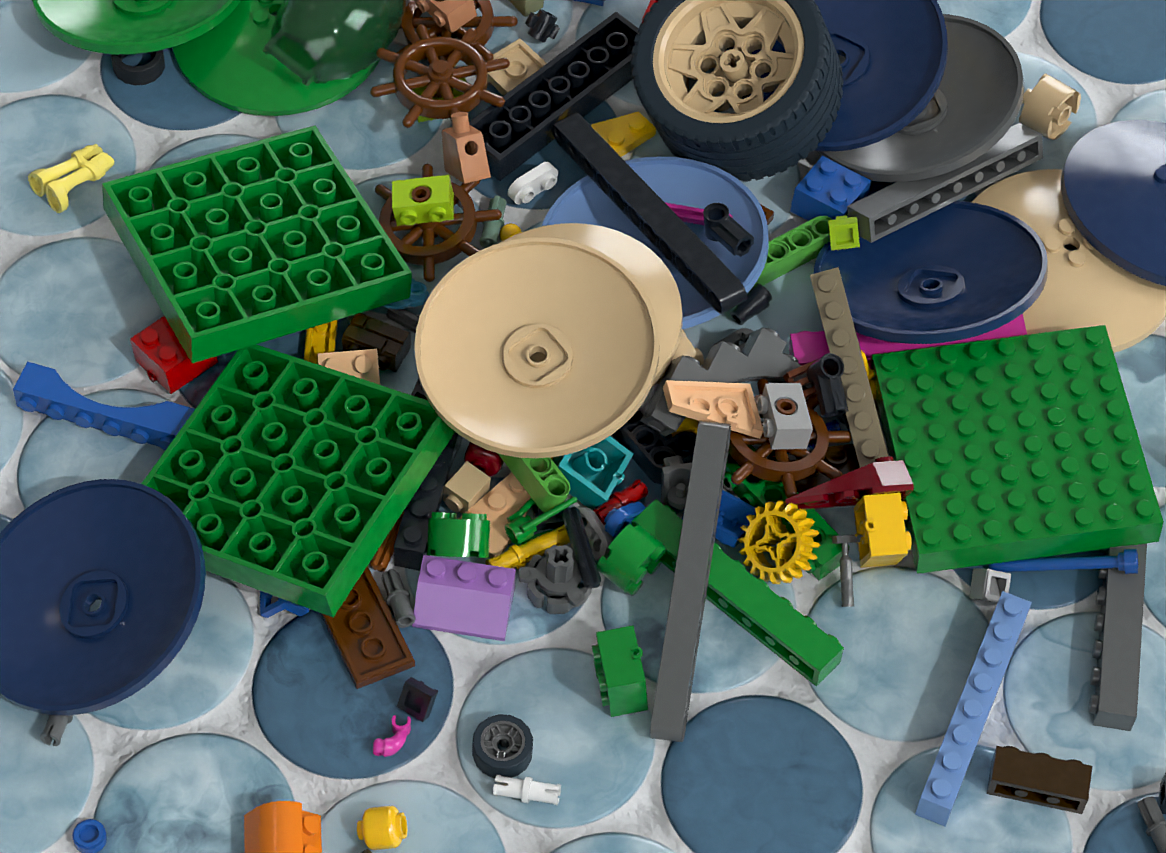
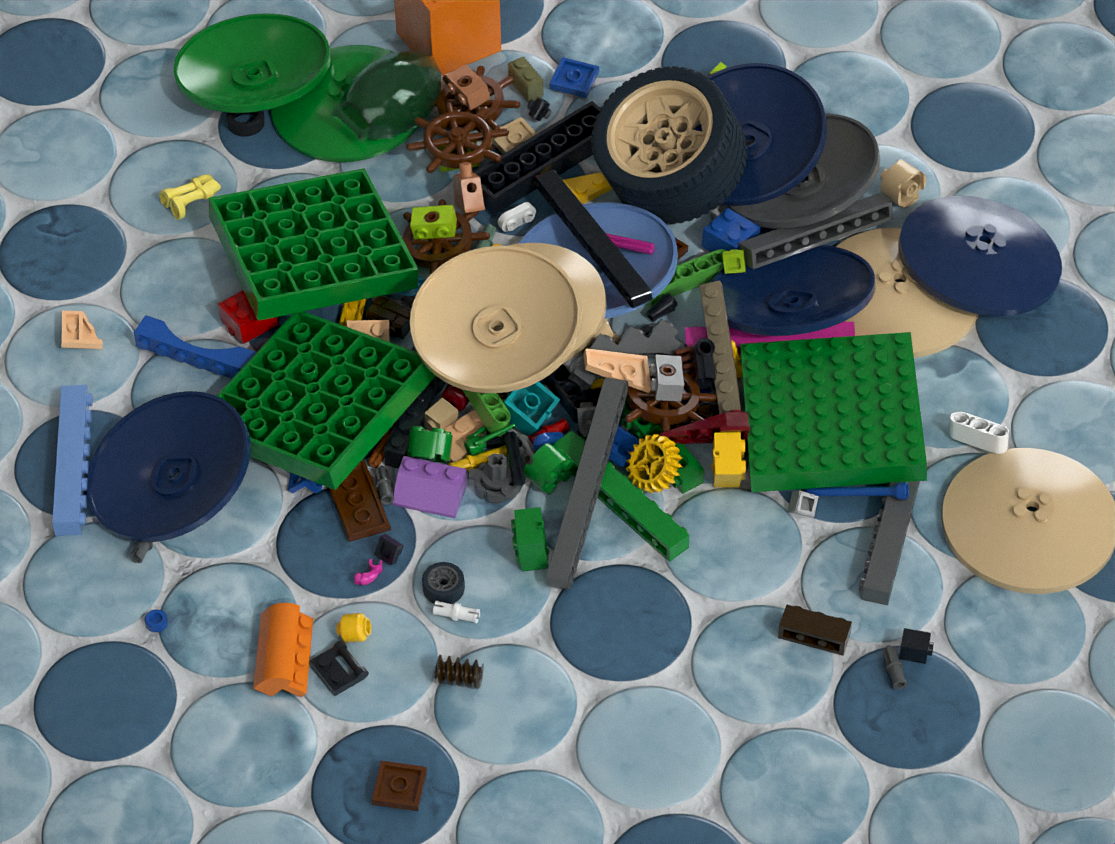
camera: 10 degrees right, 5 degrees down
(723, 228) = (645, 252): black piece -> none
(846, 569) = (700, 484): dark grey piece -> none
(973, 709) = (776, 581): medium blue brick -> none

